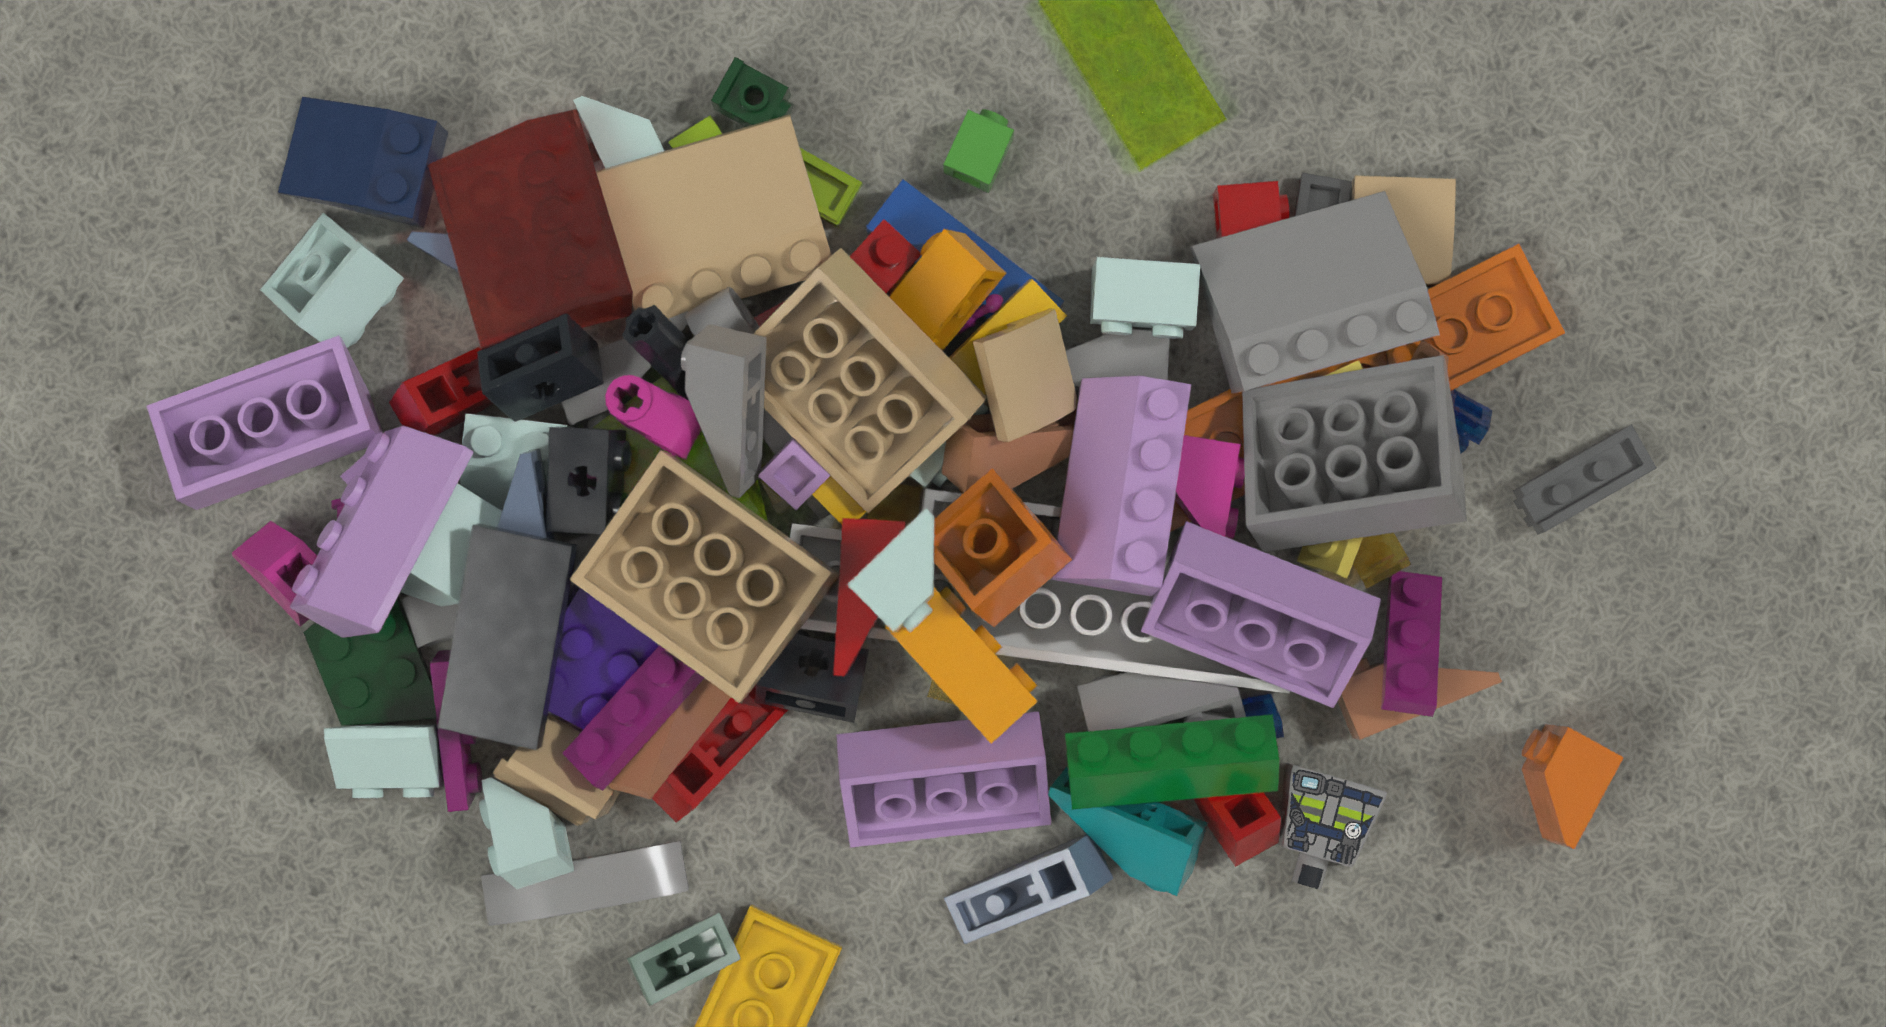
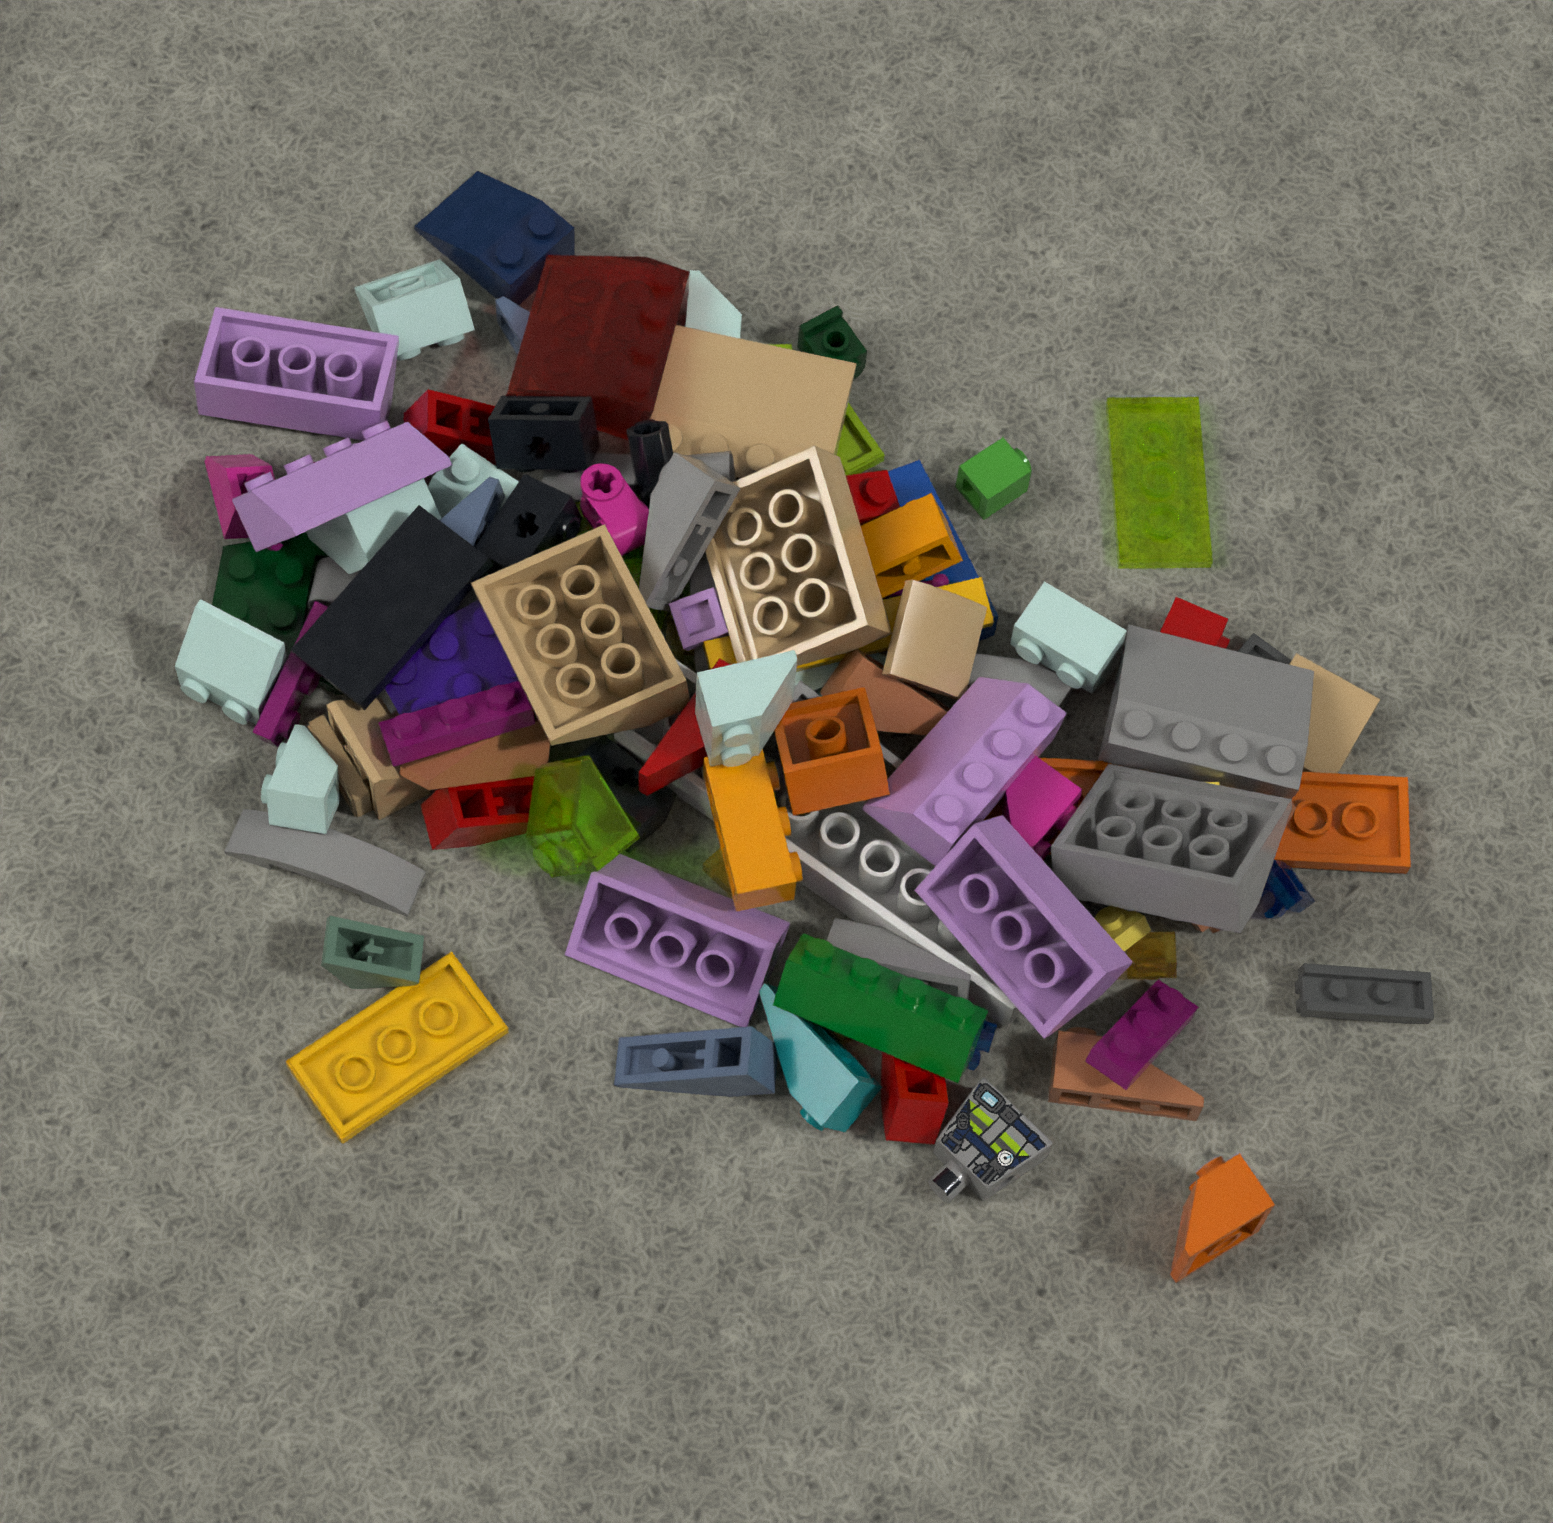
camera: 20 degrees right, 20 degrees down
(797, 739) = (575, 819): none -> clear neon green slope

